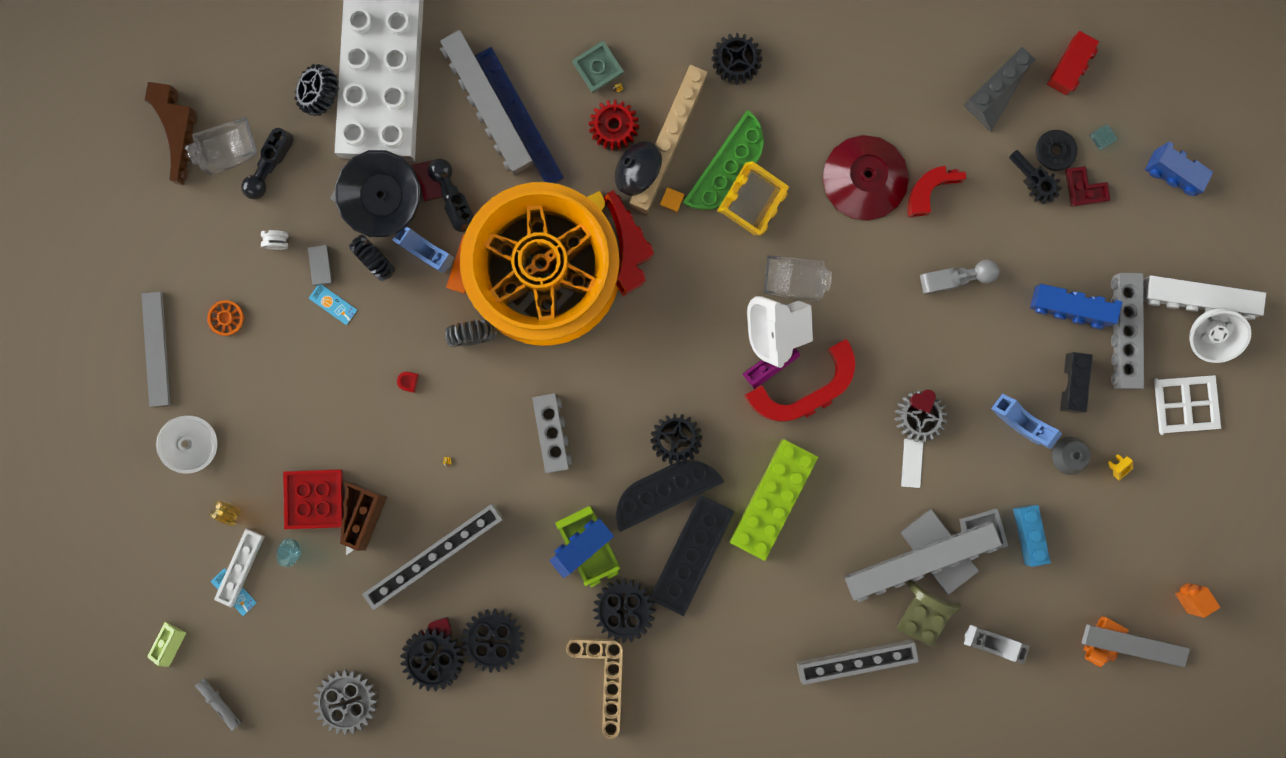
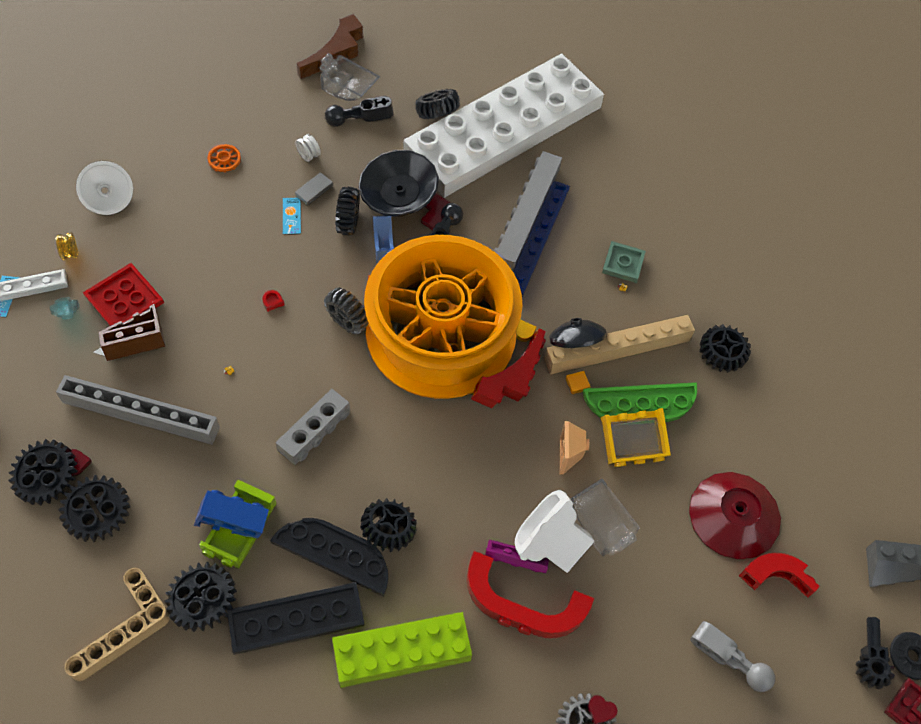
camera: 40 degrees right, 25 degrees down
(156, 349) = (164, 132): light grey tile -> none
(618, 114) = (605, 299): red gear -> none
(723, 254) = (572, 446): none -> light nougat slope

